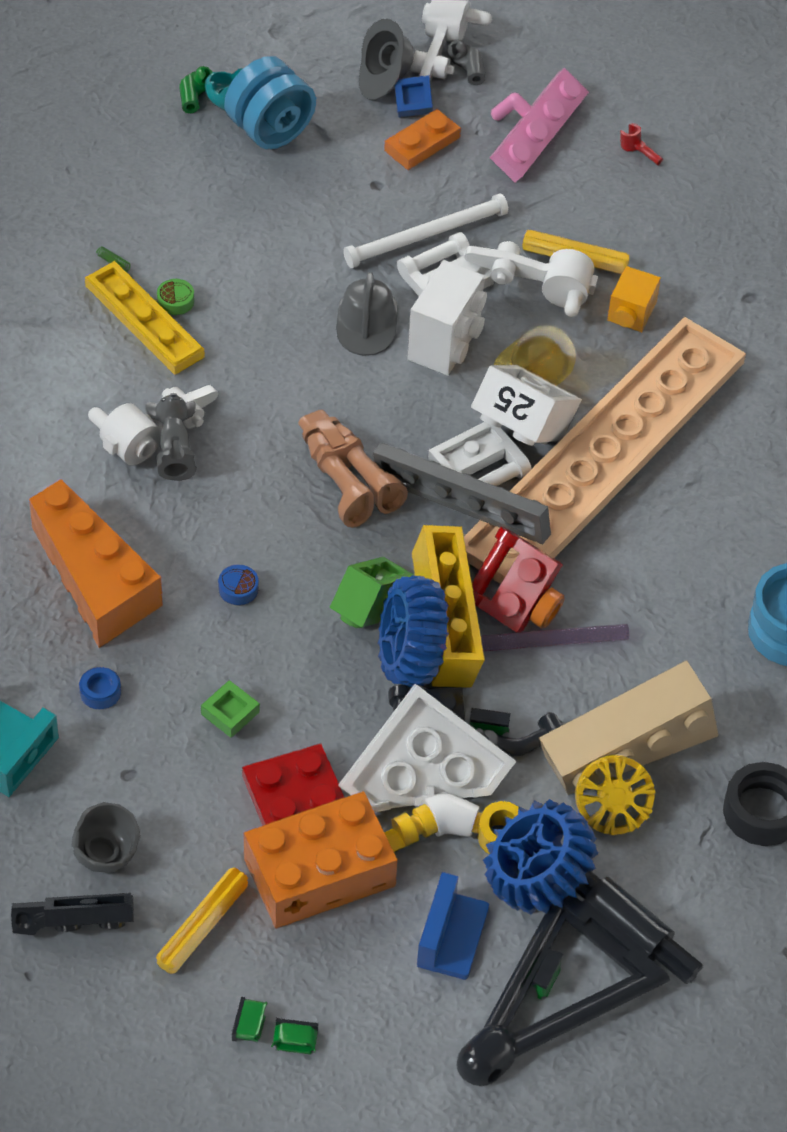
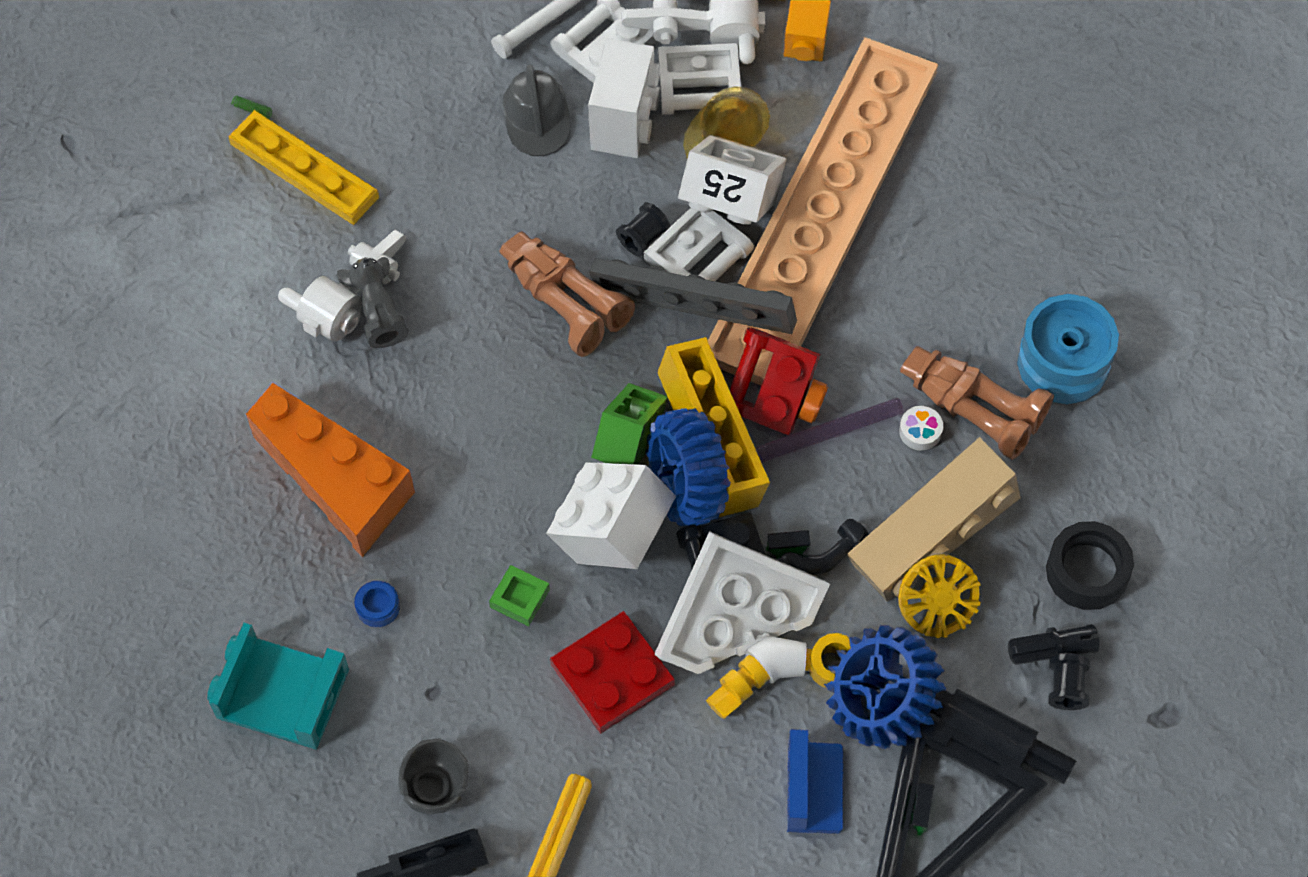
camera: 10 degrees left, 10 degrees up
(175, 296) = (330, 135): bright green tile -> none
(238, 584) = (488, 451): blue tile -> none
(320, 859) = (659, 743): orange piece -> none
(331, 655) = (611, 515): none -> white brick
(433, 431) = (642, 229): none -> black bush
(519, 310) = (695, 67): none -> white plate
(641, 654) = (921, 428): none -> white tile
(684, 623) = (954, 383): none -> nougat piece
(710, 863) = (1053, 642): none -> black axle
(716, 897) = (1069, 681): none -> black bush

